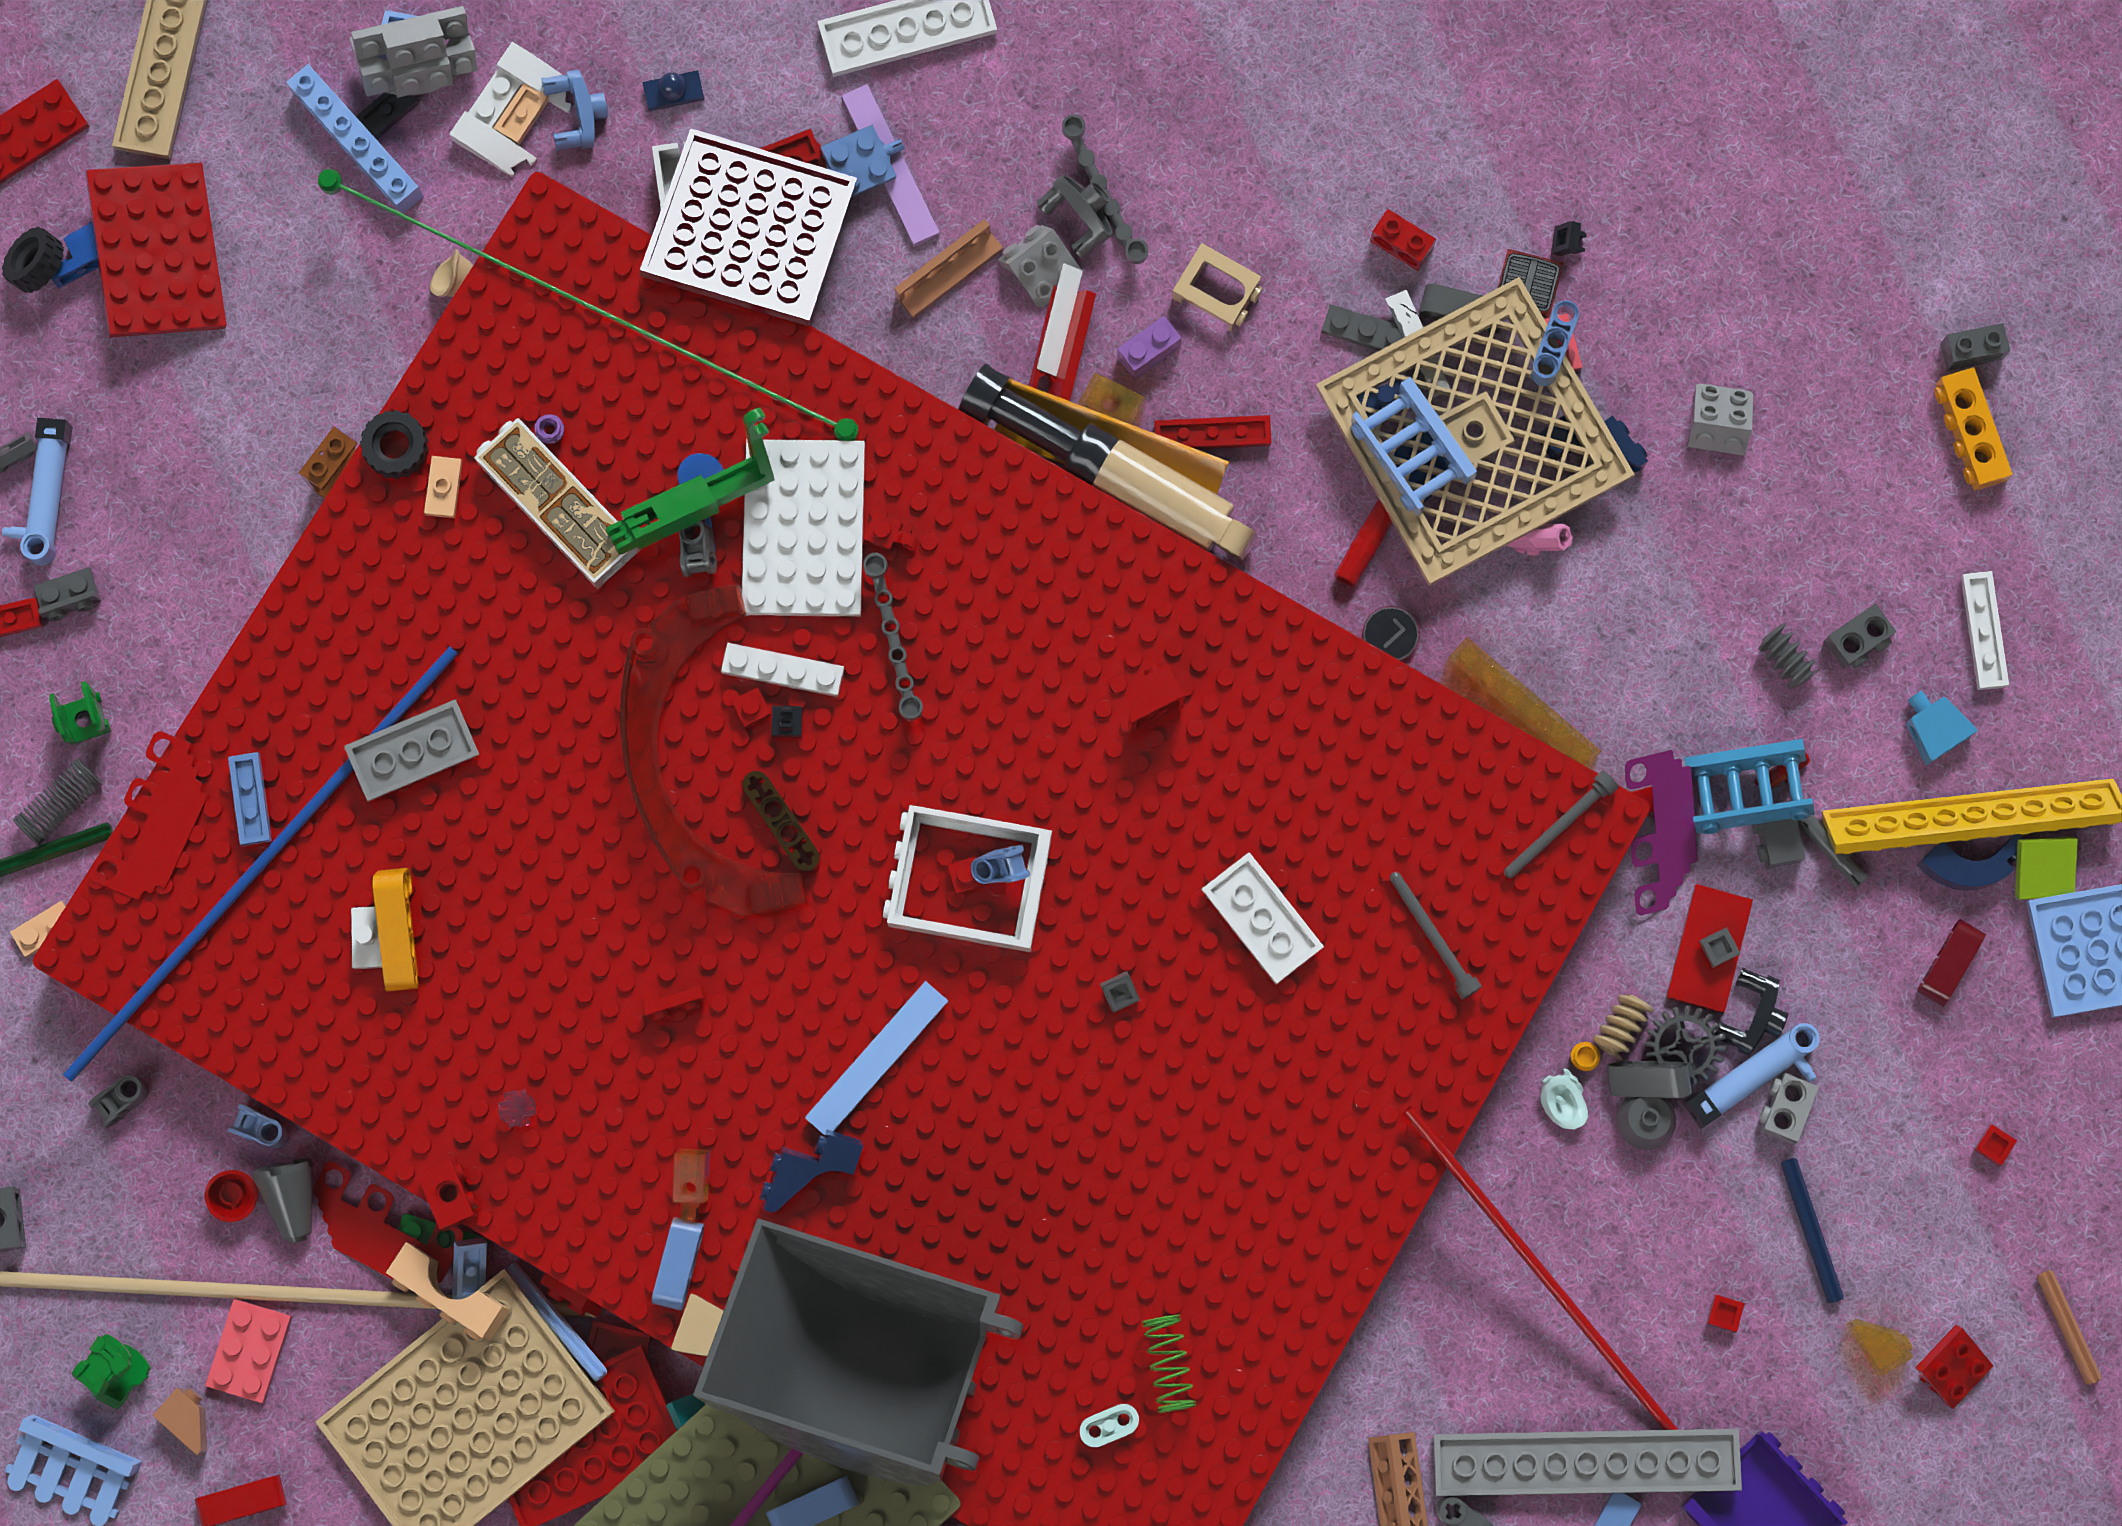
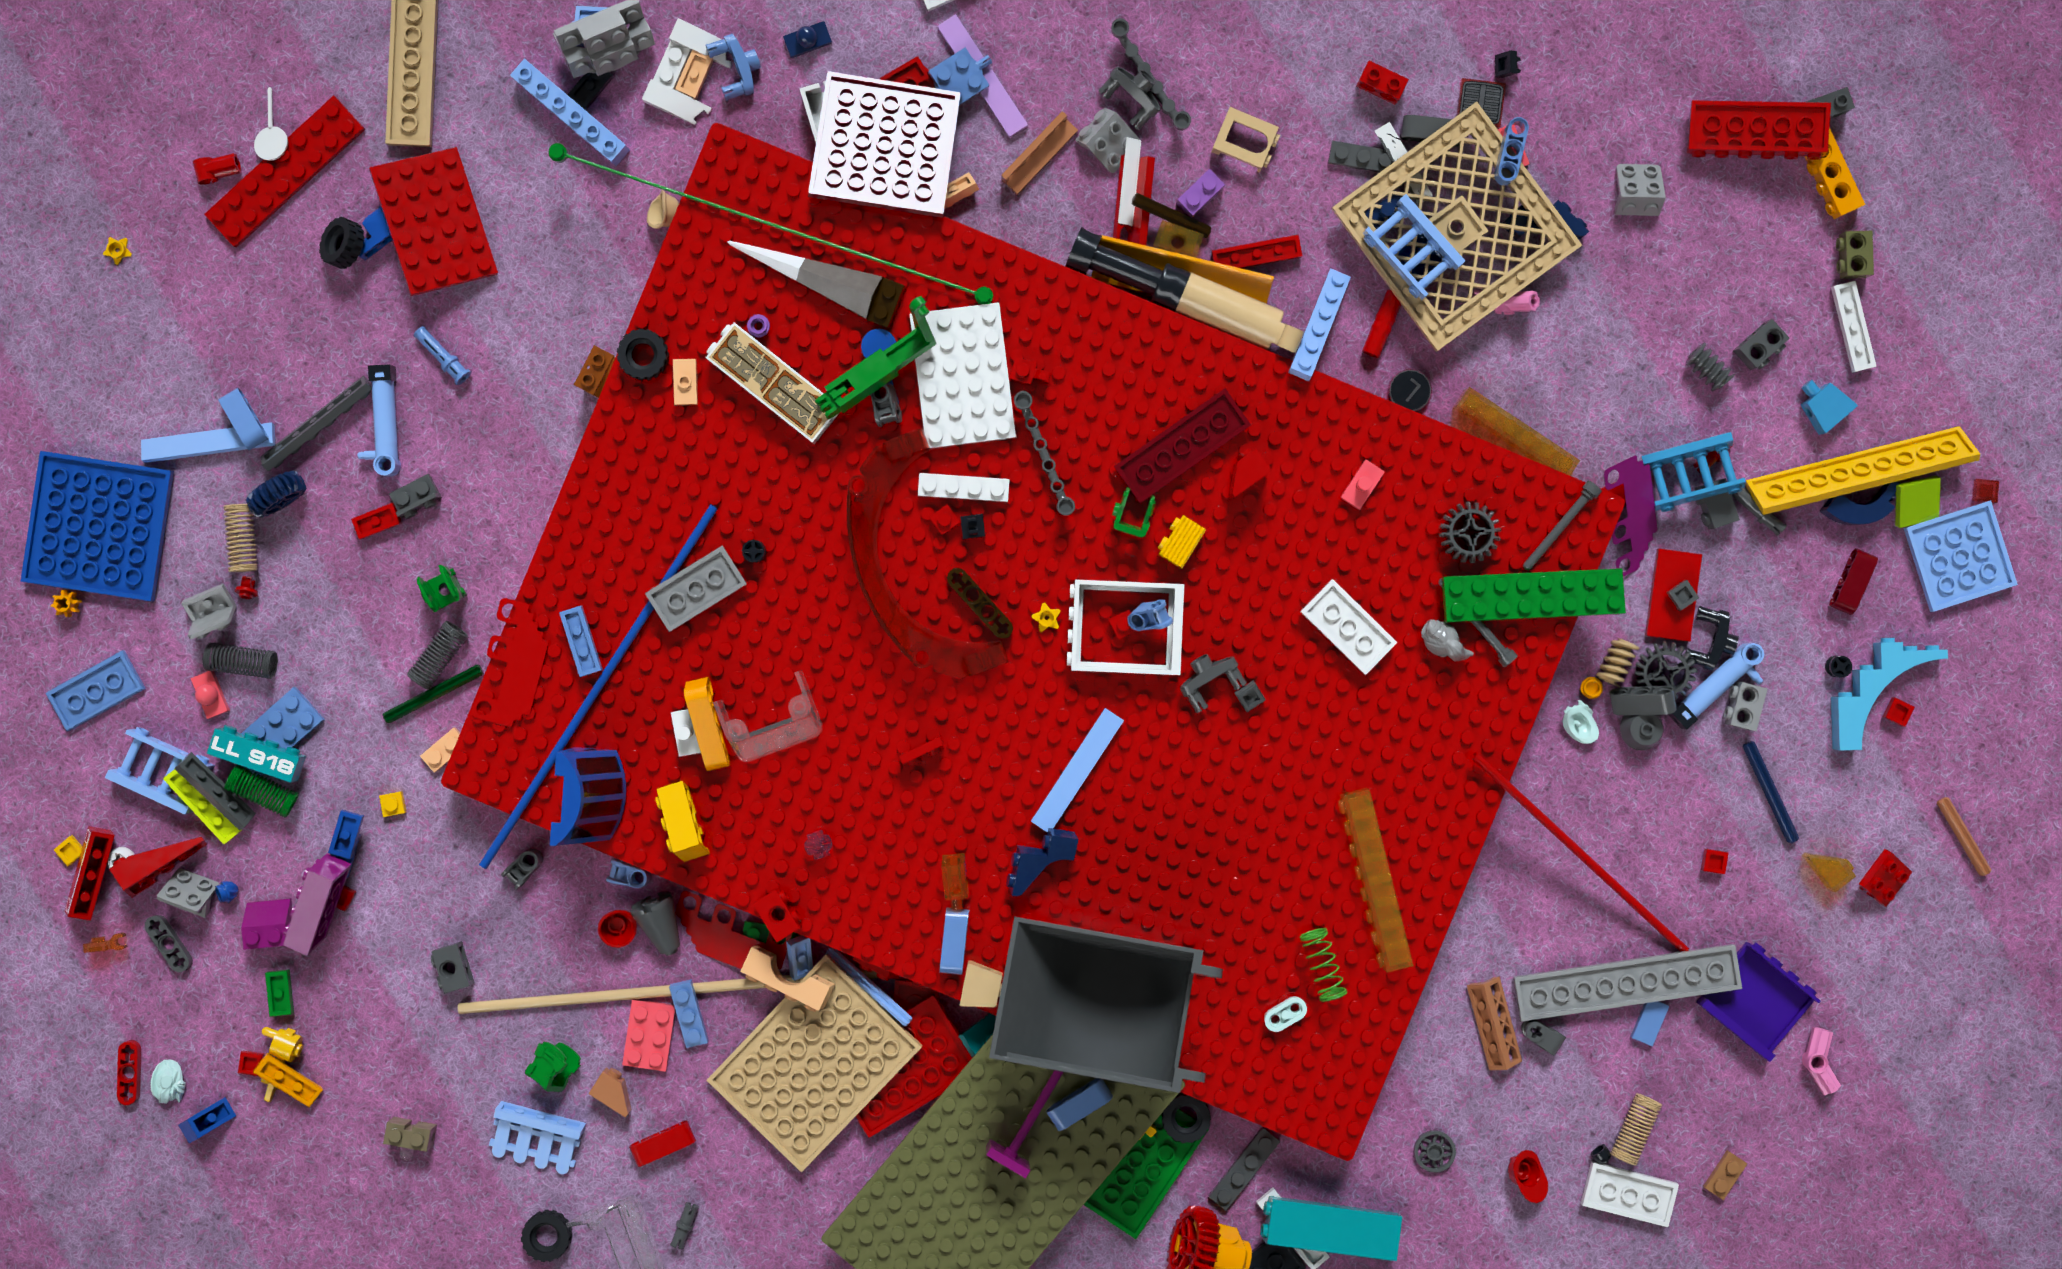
camera: 15 degrees left, 10 degrees up
(142, 429) = (448, 362): none -> medium blue pin
(226, 998) = (591, 795): none -> windscreen
(307, 1327) = (688, 1013): none -> medium blue plate
(340, 1053) = (680, 821): none -> yellow wedge
(487, 956) = (799, 728): none -> clear windscreen
(492, 709) = (749, 551): none -> black wheel
(686, 404) = (857, 291): none -> plate
(835, 301) = (959, 189): none -> light nougat plate
(866, 845) = (1046, 611): none -> yellow plate
(980, 723) = (1128, 528): none -> green piece
(1057, 776) = (1181, 541): none -> yellow brick
(1064, 949) = (1205, 671): none -> dark grey connector
(1075, 654) = (1182, 445): none -> dark red plate
(1105, 366) = (1169, 214): none -> dark brown axle
(1255, 1260) = (1376, 880): none -> clear yellow brick
(1279, 529) = (1319, 325): none -> light blue plate
(1305, 737) = (1362, 484): none -> coral tile
(1386, 954) = (1444, 640): none -> light grey hair
(1424, 816) = (1469, 521): none -> dark grey gear
(1512, 910) = (1533, 595): none -> green plate
(1882, 361) = (1759, 129): none -> red bracket
(1925, 1069) = (1842, 669): none -> black wheel
(1931, 1133) = (1851, 712): none -> medium azure arch
(2002, 540) = (1861, 255): none -> olive brick

